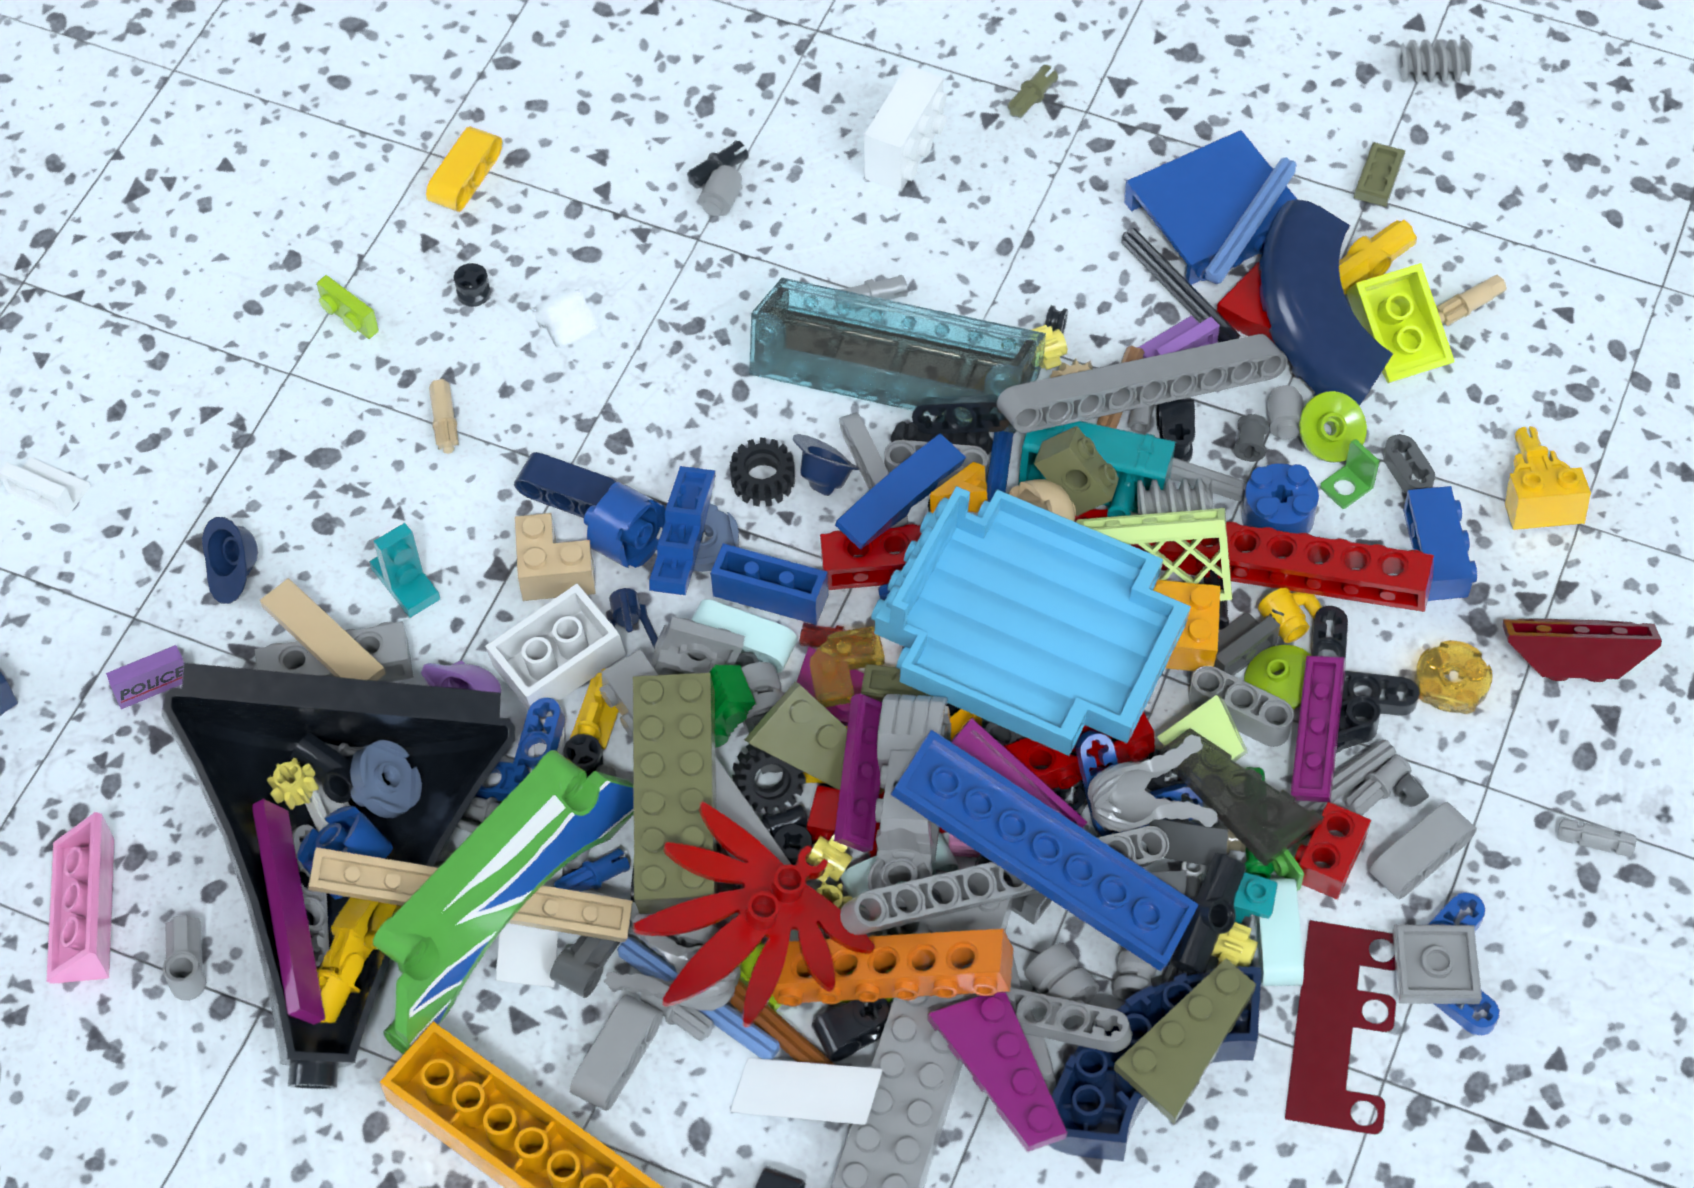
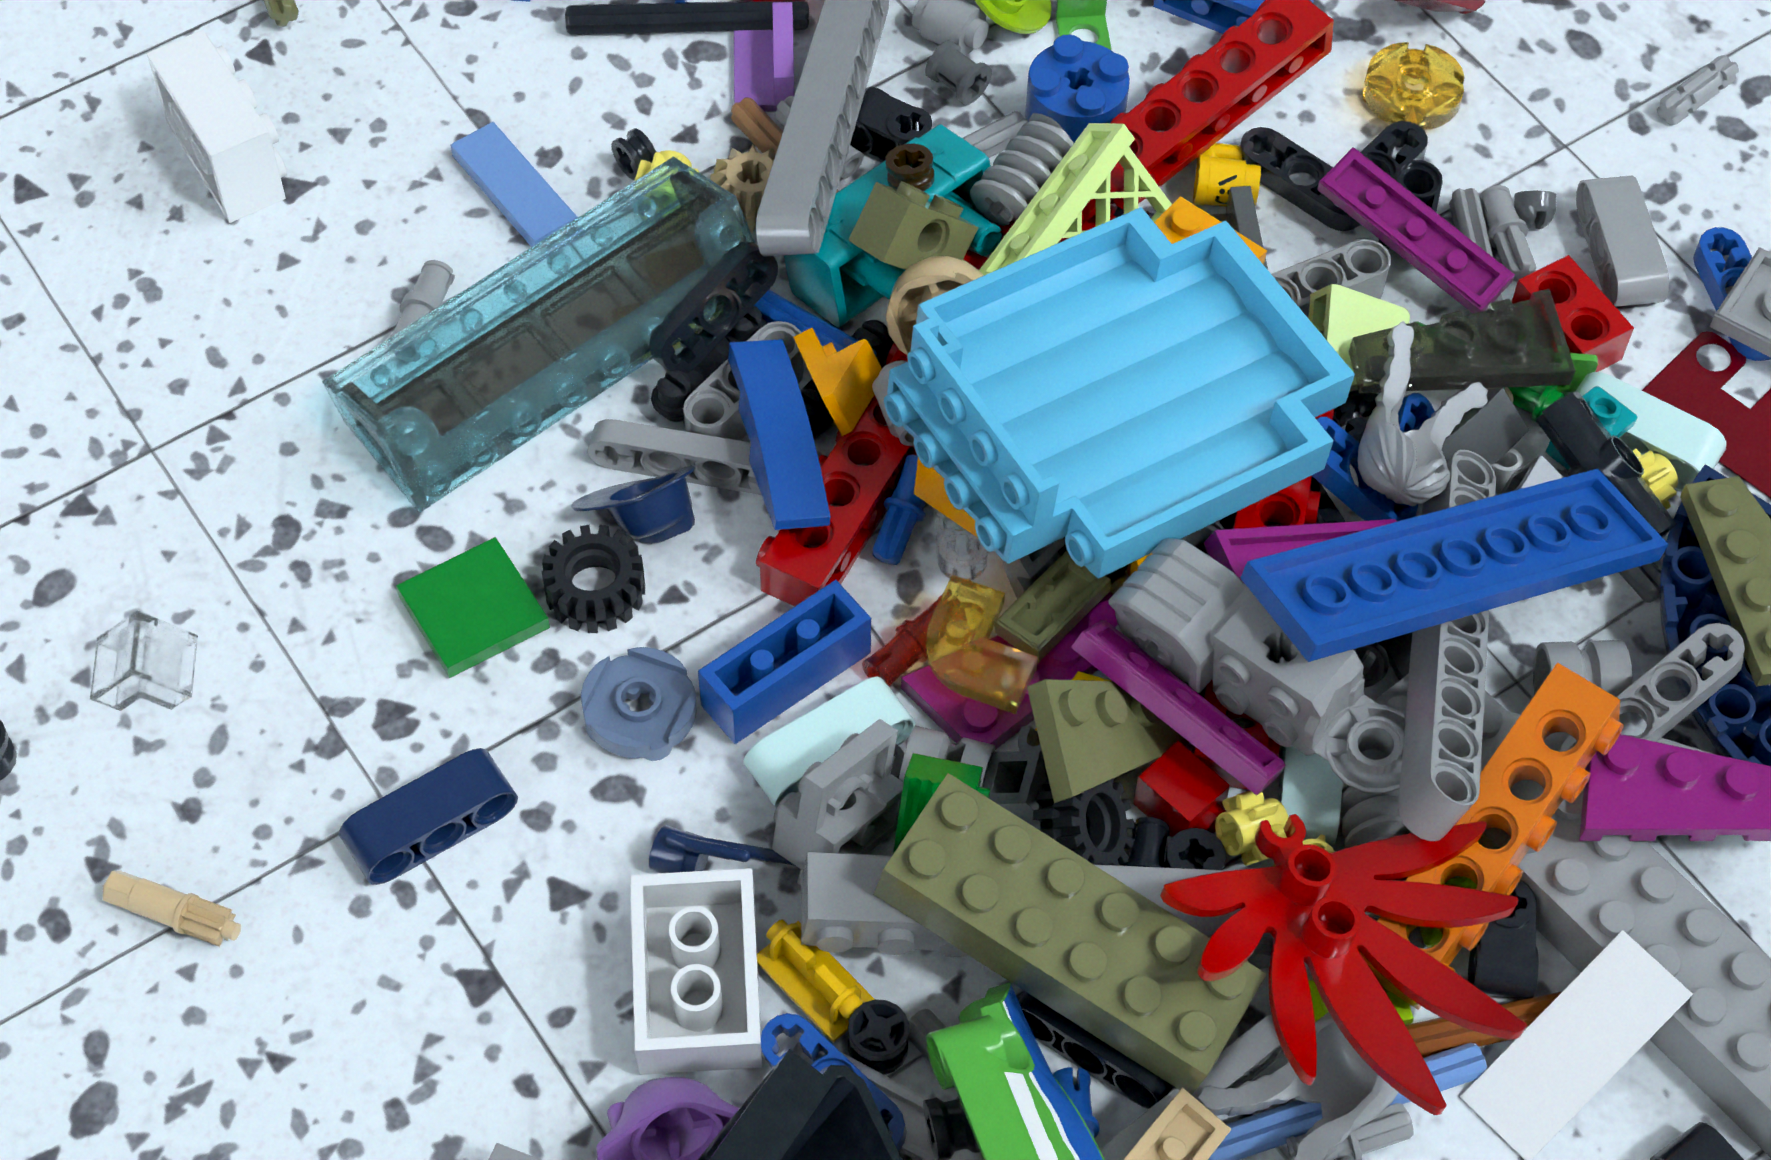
camera: 60 degrees left, 0 degrees up
(401, 571) = (399, 1103): teal bracket -> none
(547, 566) = (535, 914): tan brick -> none
(625, 525) = (560, 776): blue brick -> none
(682, 530) = (626, 712): blue slope -> none
(700, 174) = (61, 356): black axle -> none
(707, 431) = (472, 607): none -> green tile
(721, 191) = (110, 375): light grey brick -> none
(992, 280) = (512, 183): none -> medium blue tile
(1118, 451) = (910, 165): none -> dark brown bush
(1133, 977) = (1618, 605): light grey wheel -> none
(1285, 686) = (1302, 205): lime dish -> none

